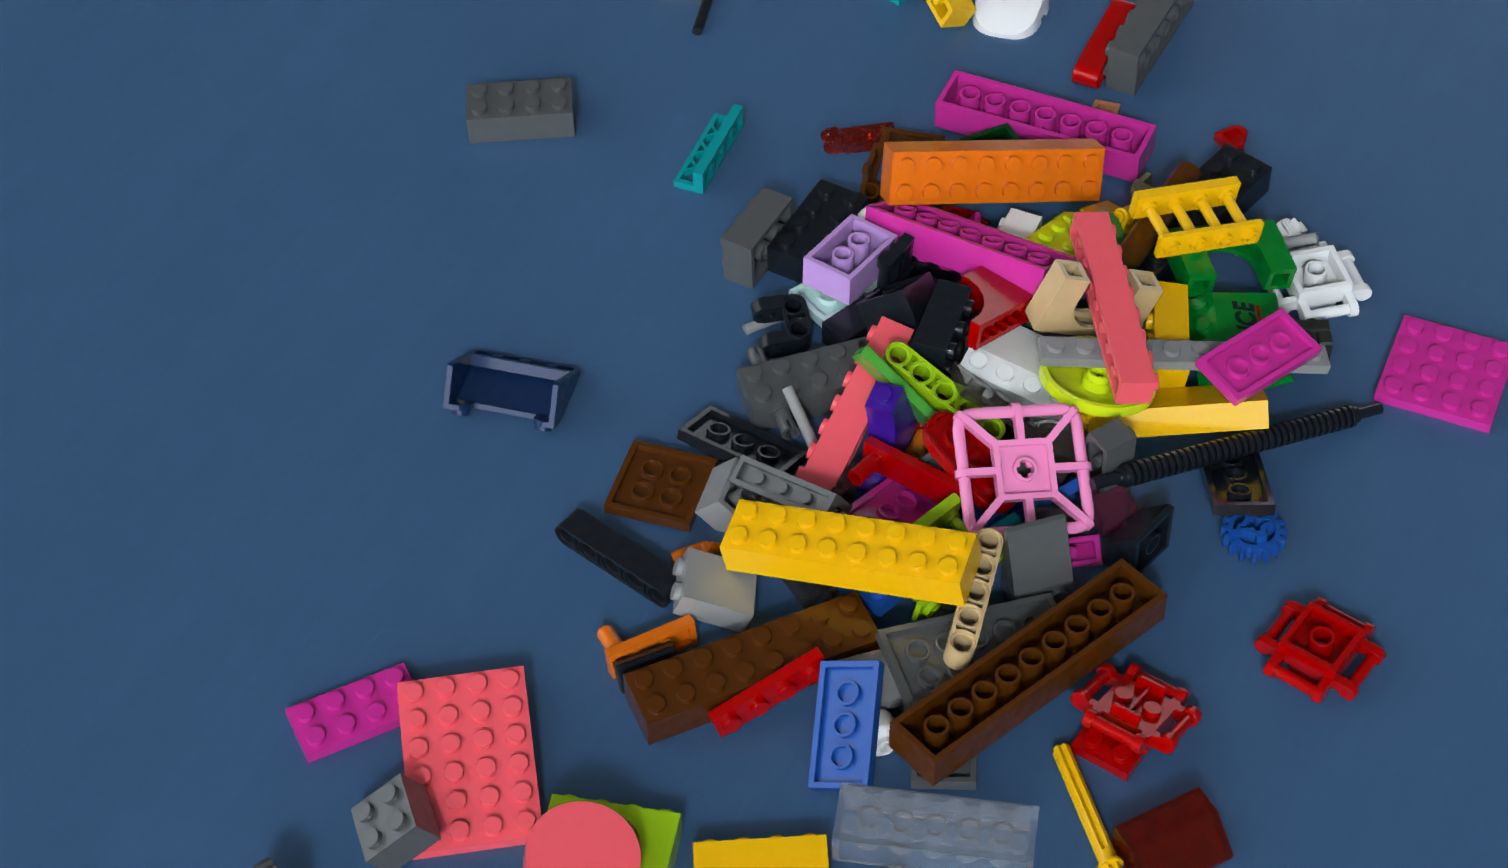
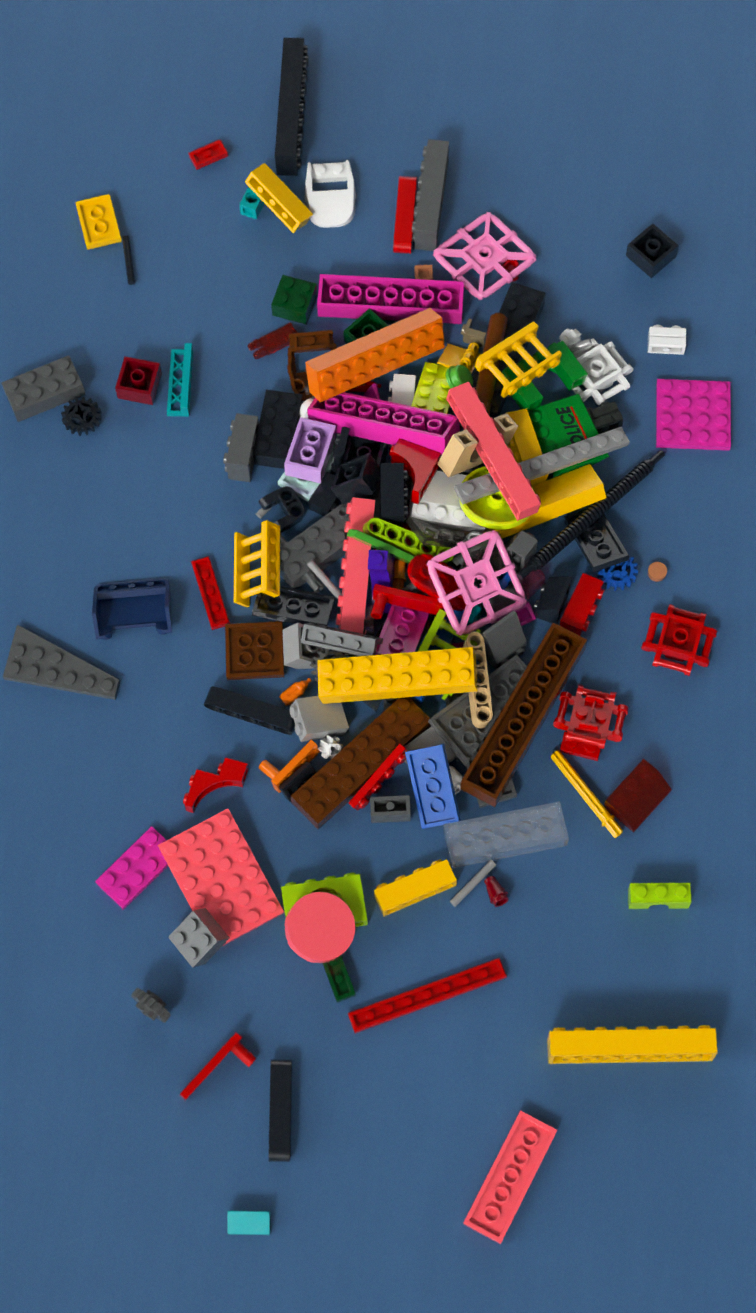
camera: 20 degrees left, 20 degrees up
(361, 424) = (47, 665): none -> dark grey wing
(505, 629) = (202, 783): none -> red arch
(556, 153) = (90, 413): none -> black gear
(632, 400) = (210, 593): none -> red tile
(651, 131) = (138, 380): none -> dark red brick
(708, 628) = (330, 746): none -> white gear
(726, 376) = (269, 563): none -> yellow fence
(768, 742) = (390, 809): none -> dark grey brick
(907, 96) = (294, 299): none -> dark green brick
(1184, 558) = (582, 604): none -> red brick
(1214, 112) = (484, 265): none -> bright pink plate
(1258, 356) = (589, 455): dark pink plate -> none
(1317, 554) = (657, 571): none -> nougat tile
(1436, 271) = (666, 340): none -> white brick
(1451, 160) = (652, 250): none -> black brick

